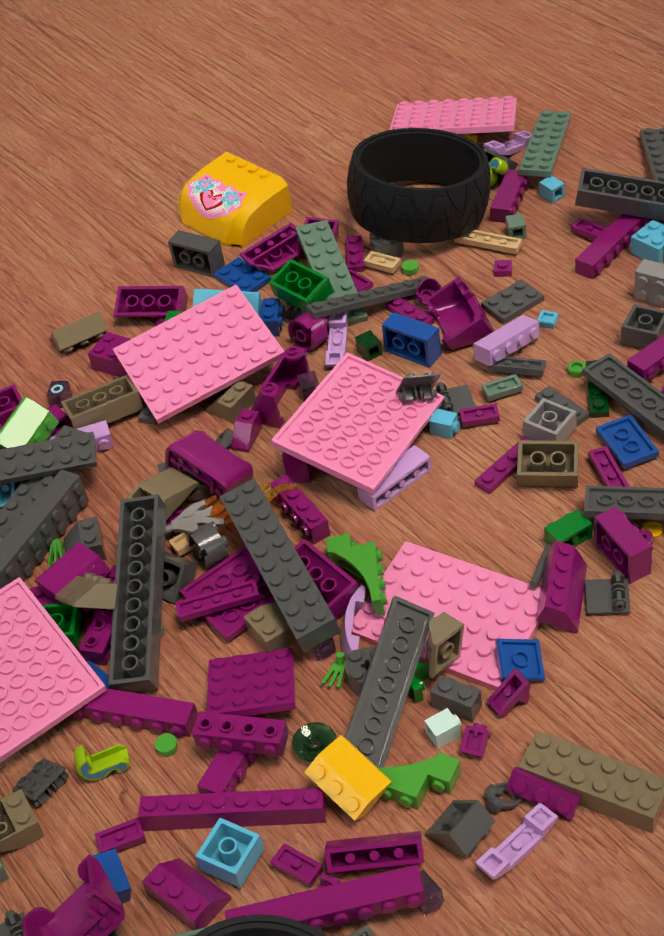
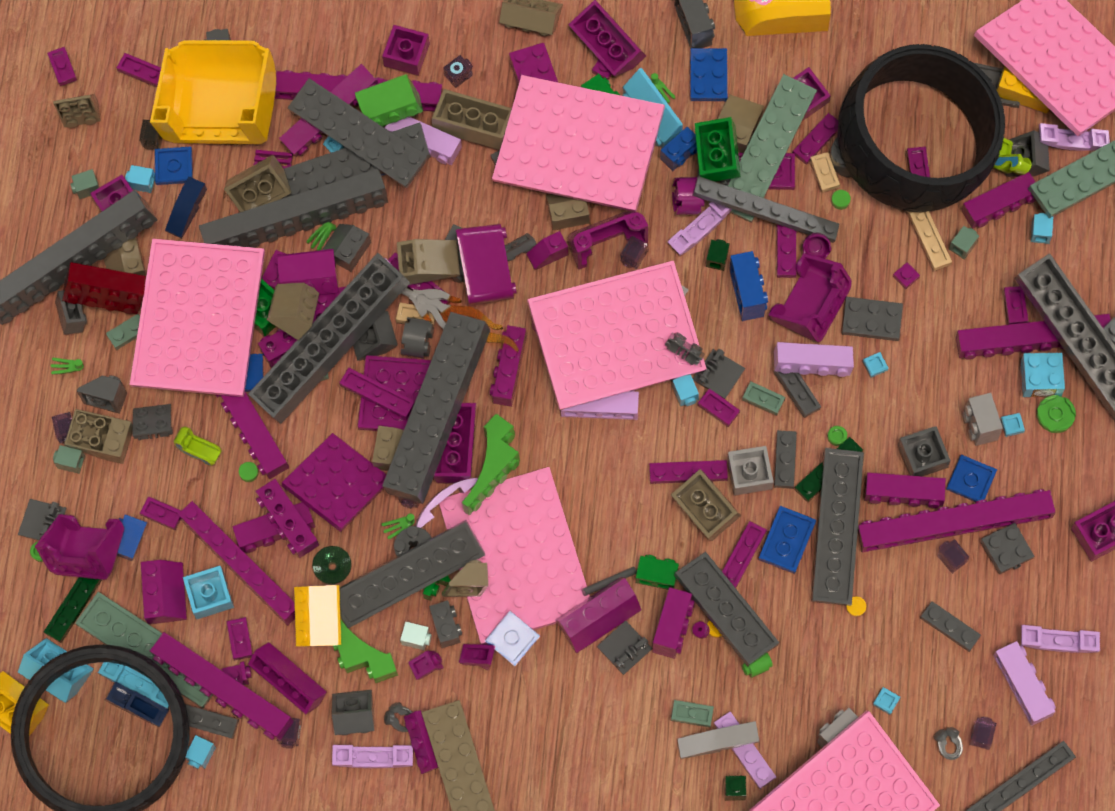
camera: 40 degrees right, 25 degrees up
(273, 250) = (752, 76): magenta wedge -> none

